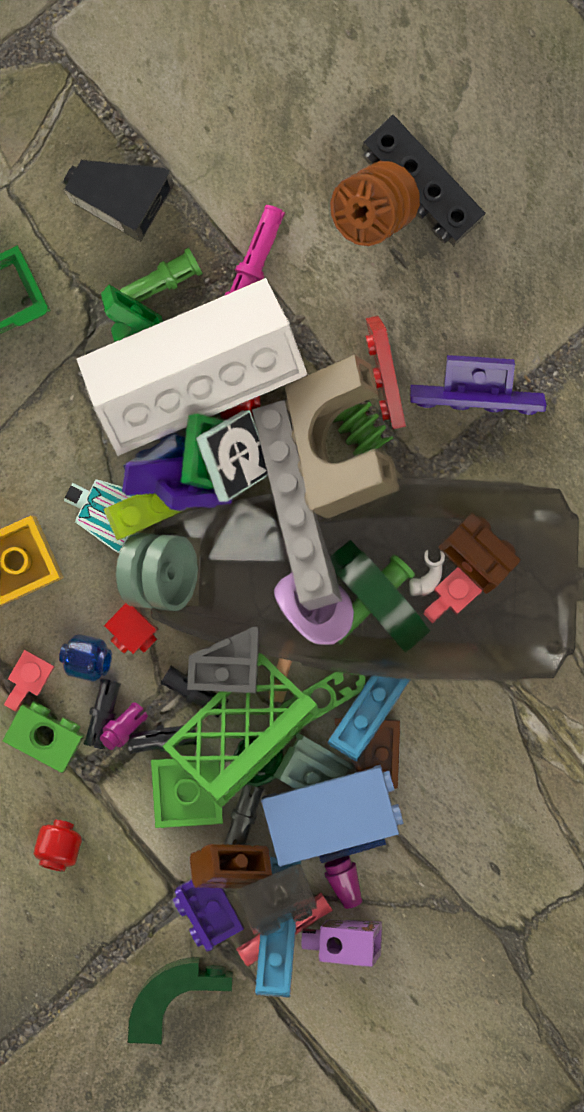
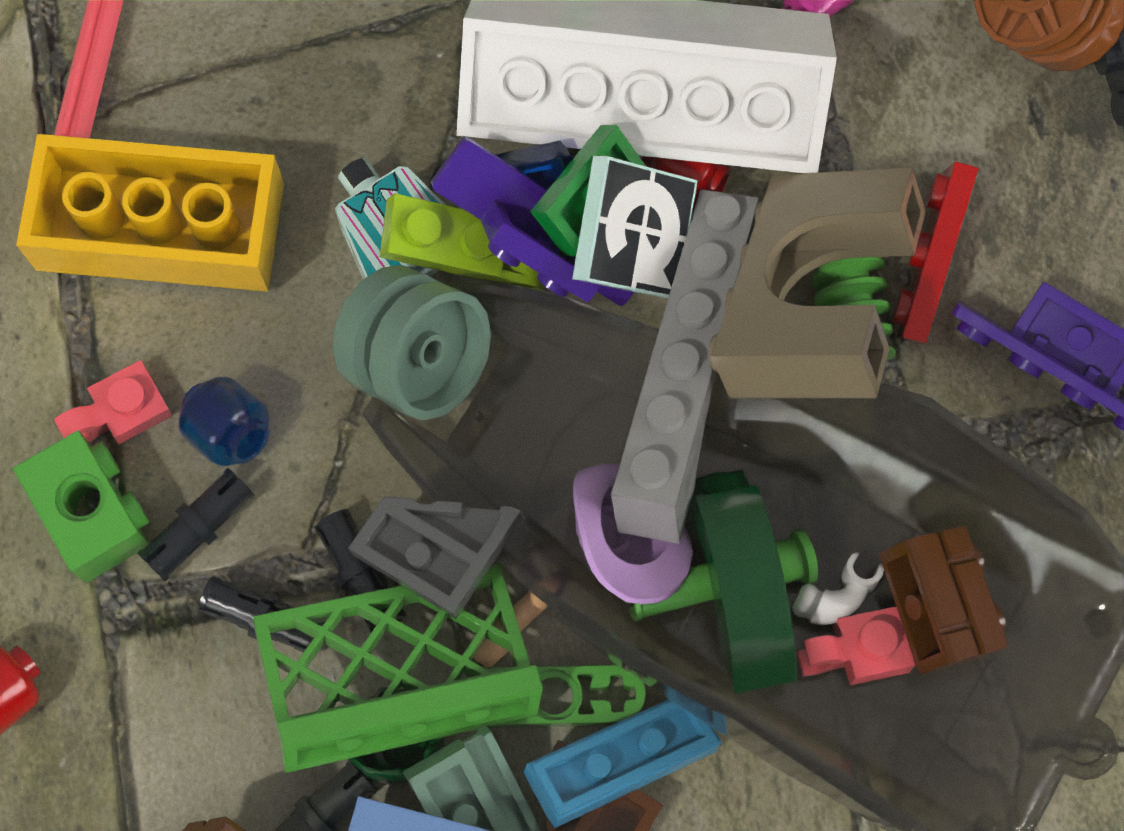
camera: 25 degrees right, 15 degrees down
(118, 731) = (200, 560): magenta animal -> none
(131, 630) = (320, 418): red brick -> none
(180, 798) = (232, 726): bright green plate -> none
(248, 536) = (586, 374): clear smoke wing -> none

